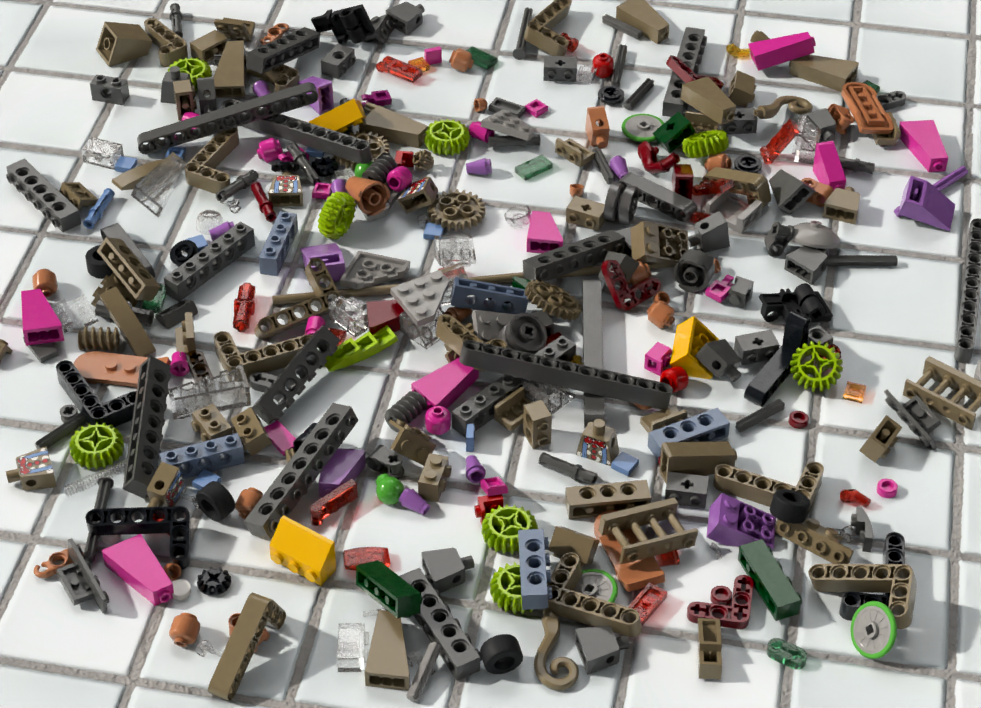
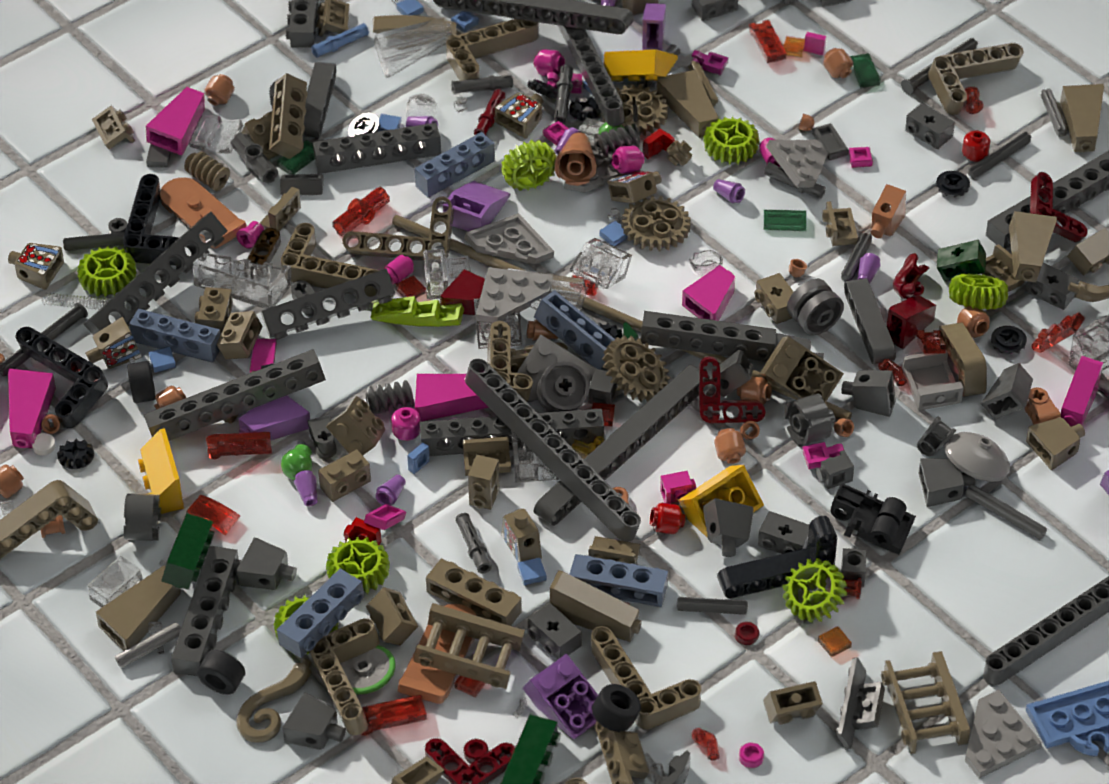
camera: 40 degrees right, 5 degrees up
(127, 322) = (240, 169): dark tan slope -> none
(323, 588) = (142, 517): none -> dark grey brick
(586, 74) = (950, 146): clear tile -> none
(639, 93) = (984, 198): dark grey axle -> none
(641, 127) = (942, 233): light grey wheel -> none

